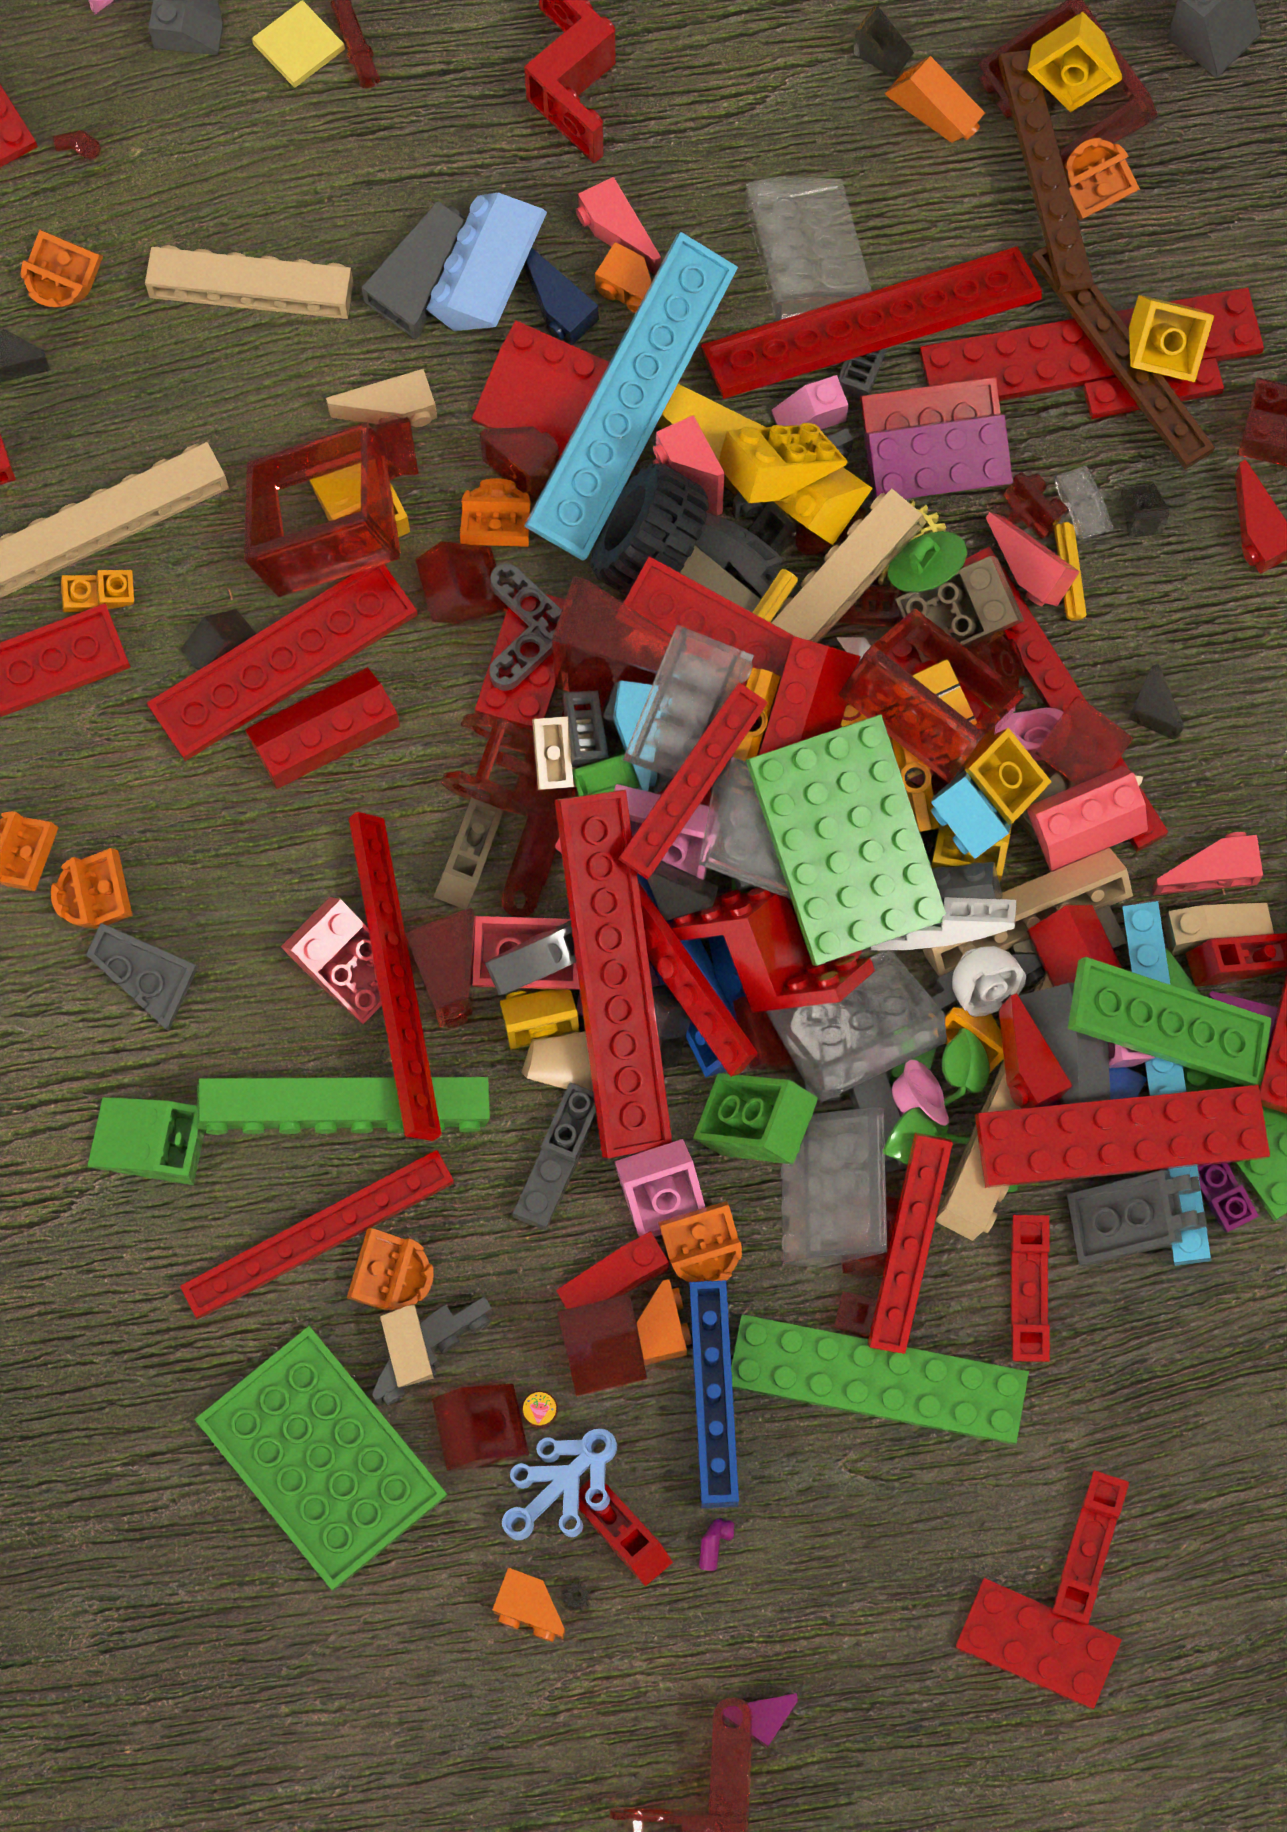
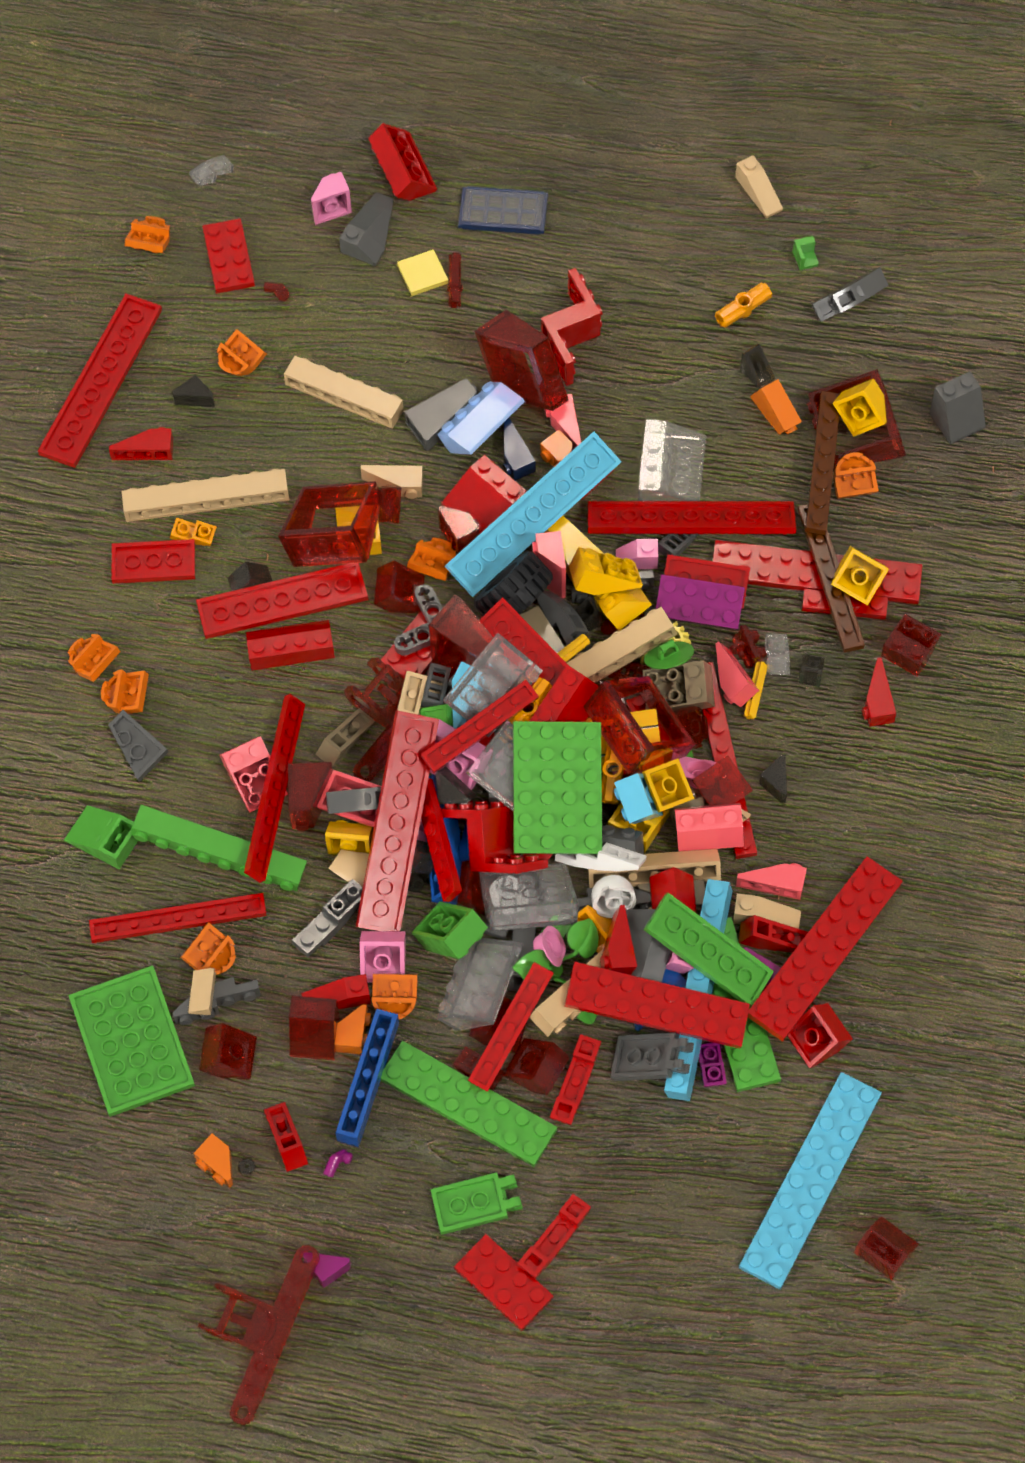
camera: 20 degrees right, 10 degrees down
(485, 137) = (503, 349): none -> clear red windscreen
(539, 1409) = (266, 1055): tile -> none
(563, 1480) = (263, 1098): light blue plant -> none
(946, 1534) = (474, 1202): none -> bright green tile
(962, 1285) = (536, 1065): none -> clear red slope

